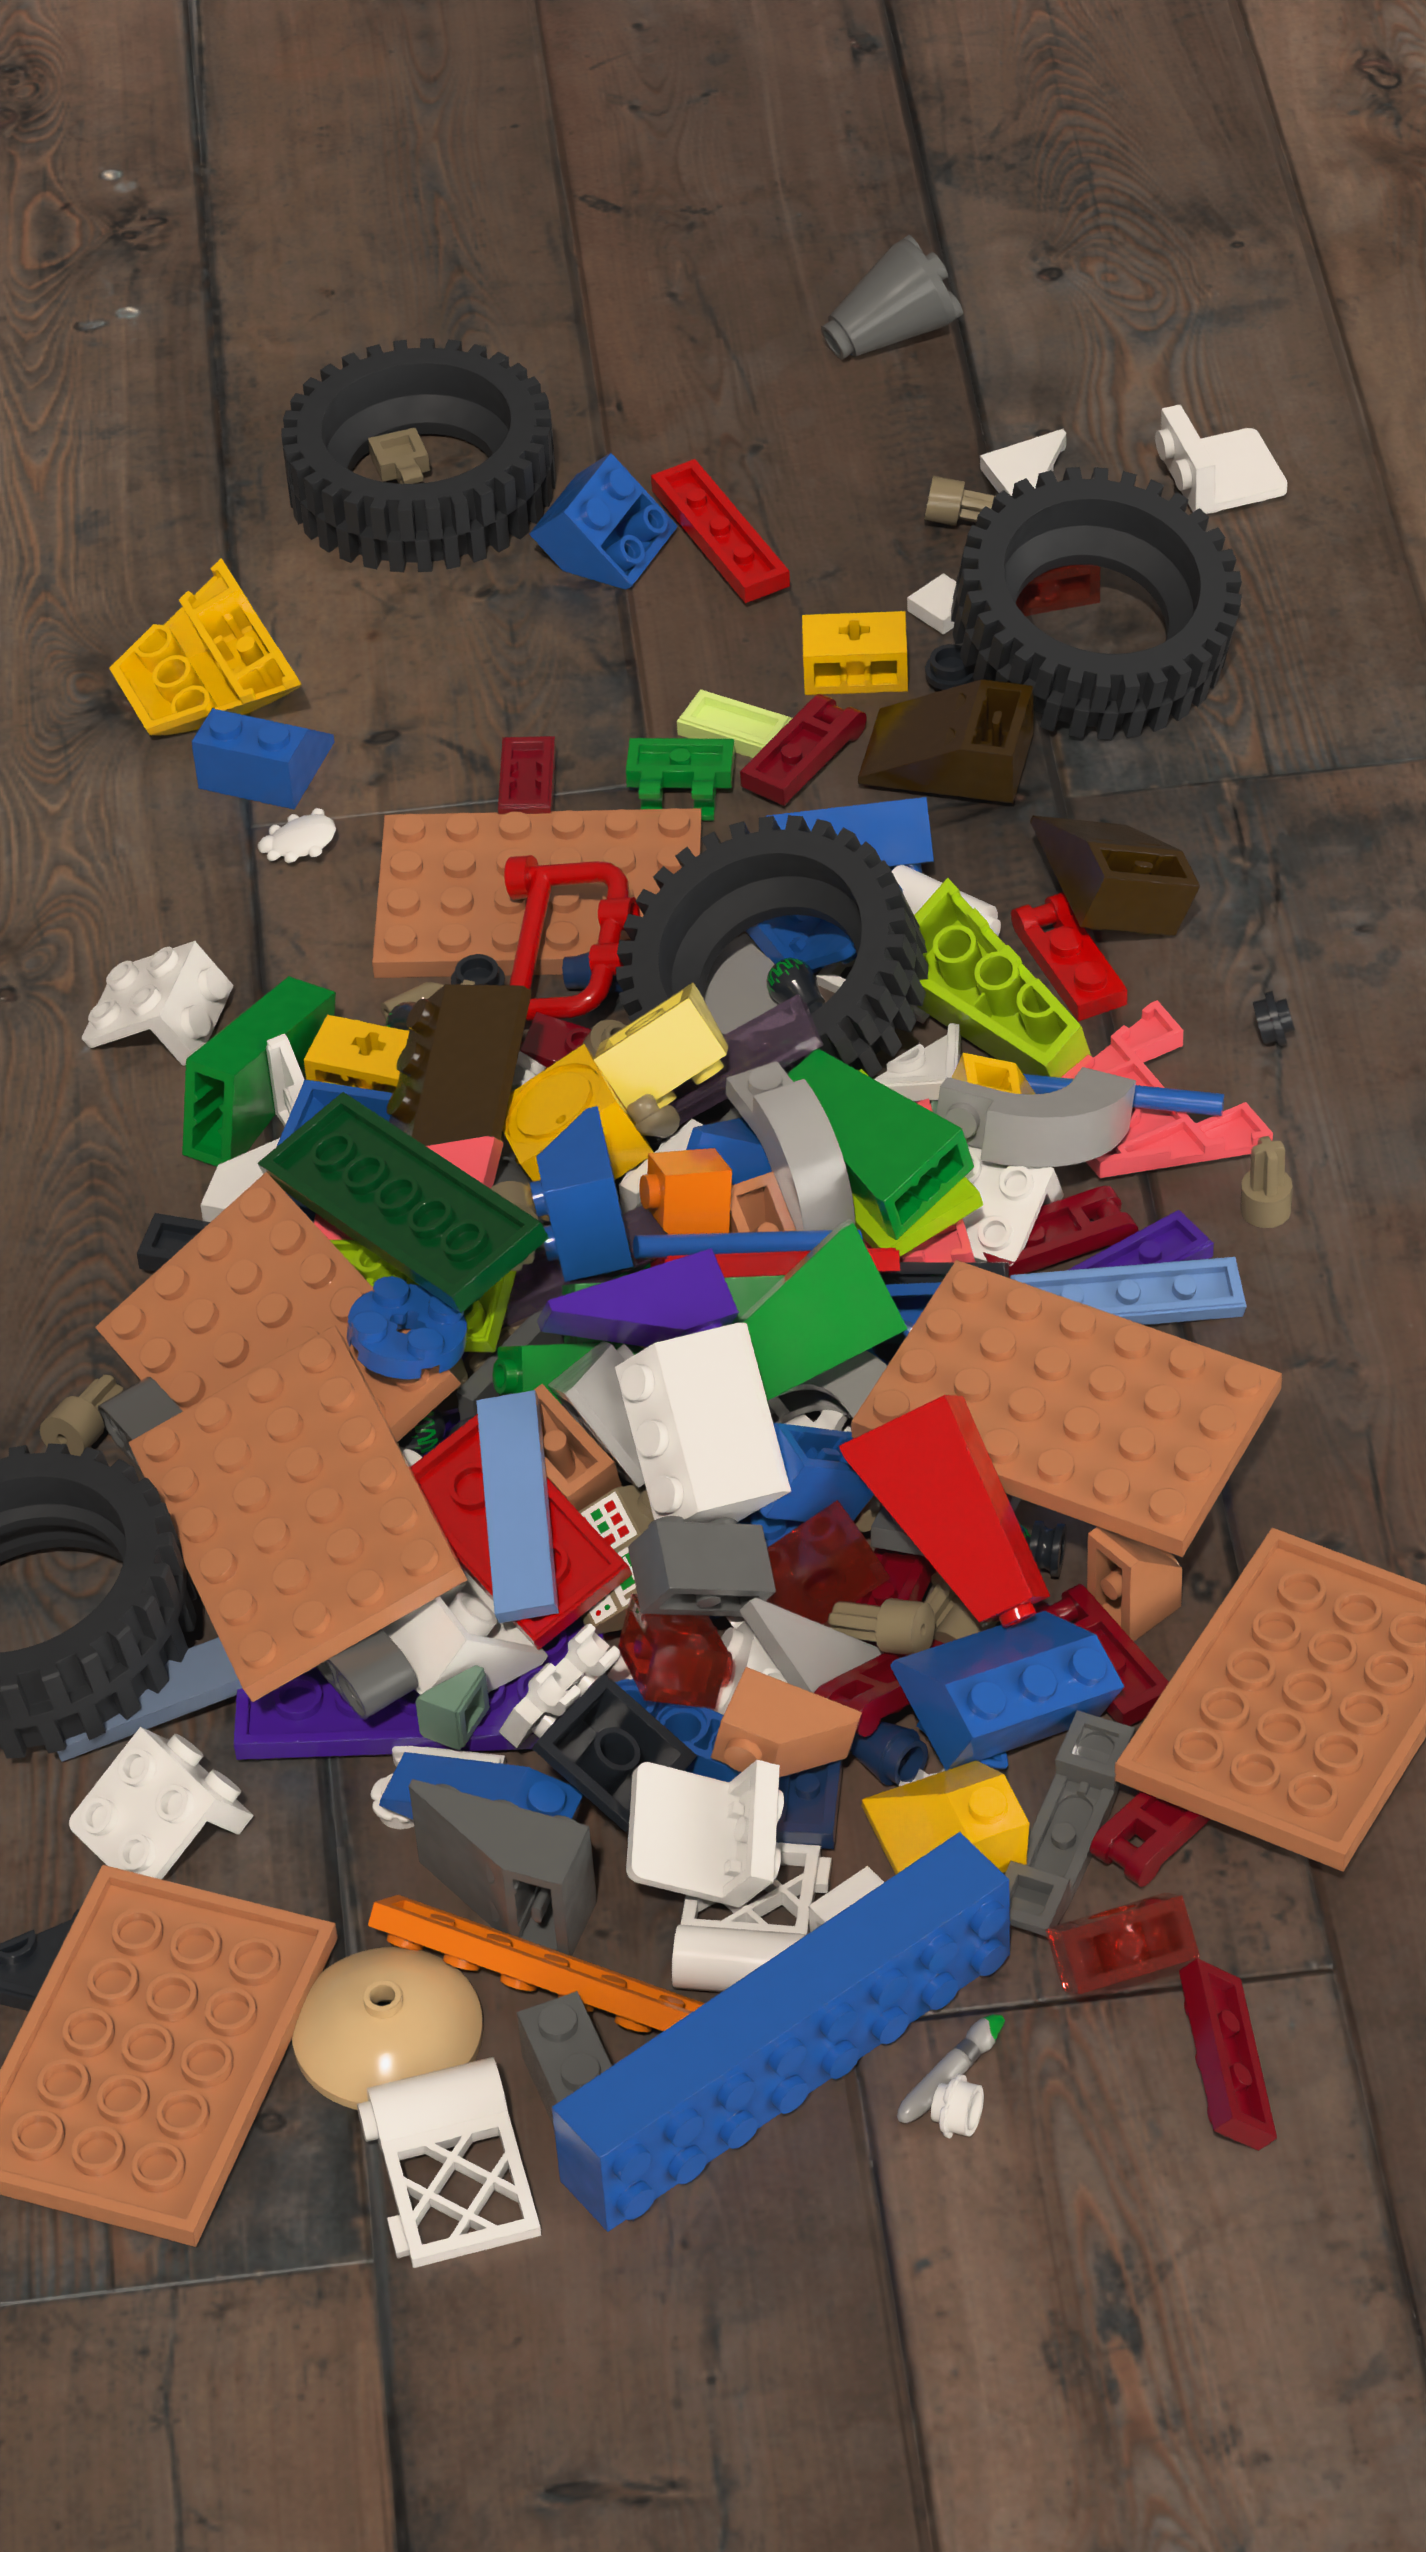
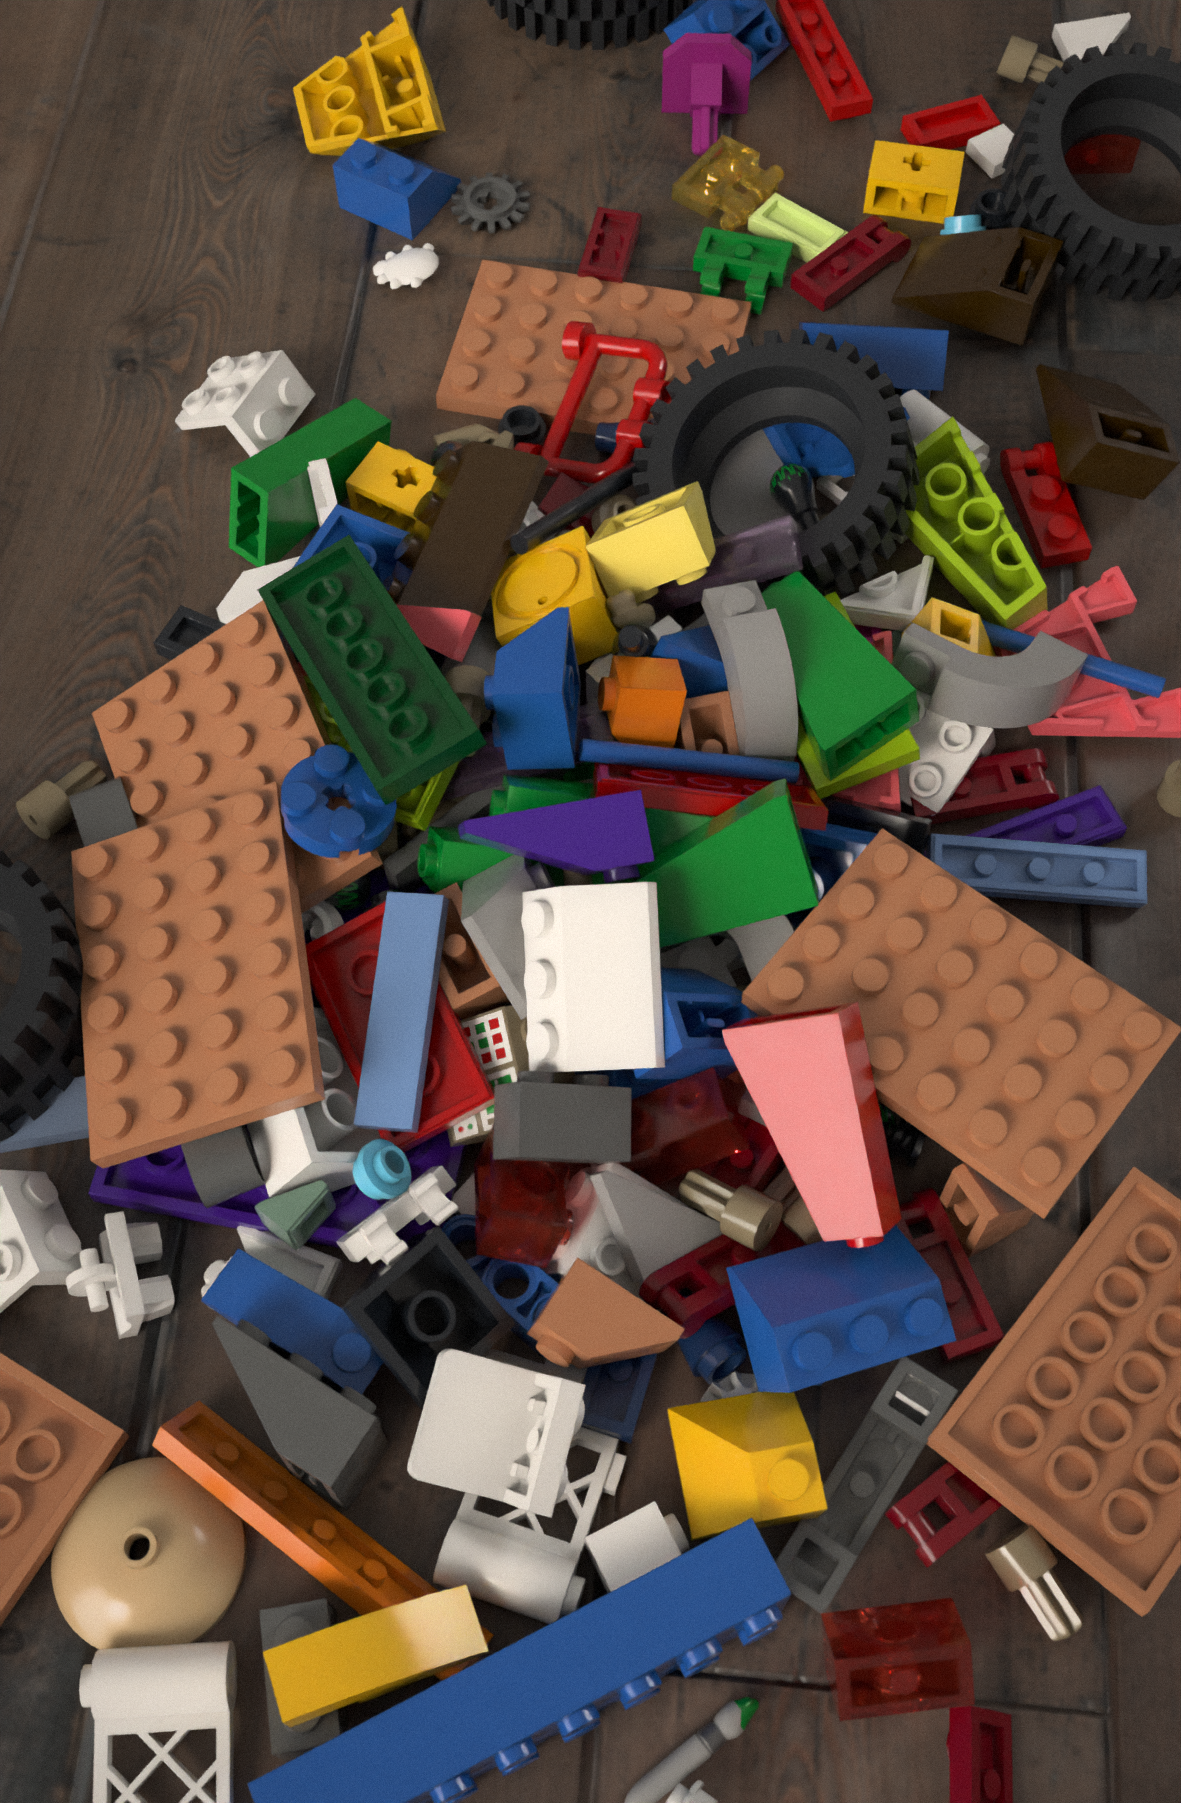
camera: 10 degrees right, 15 degrees up
(286, 1805) = (131, 1299): none -> white hips
(353, 754) = (474, 196): none -> dark grey gear
(532, 1647) = (382, 1170): none -> medium azure plate
(567, 1035) = (573, 509): none -> black bar
(594, 581) = (706, 78): none -> magenta piece
(625, 2011) = (374, 1654): none -> yellow slope
(630, 683) = (717, 175): none -> clear yellow plate
(664, 1137) = (634, 642): none -> black piece
(882, 584) = (949, 124): none -> red tile
(919, 687) = (962, 224): none -> medium azure plate
(1231, 1860) = (1026, 1565): none -> dark tan piece

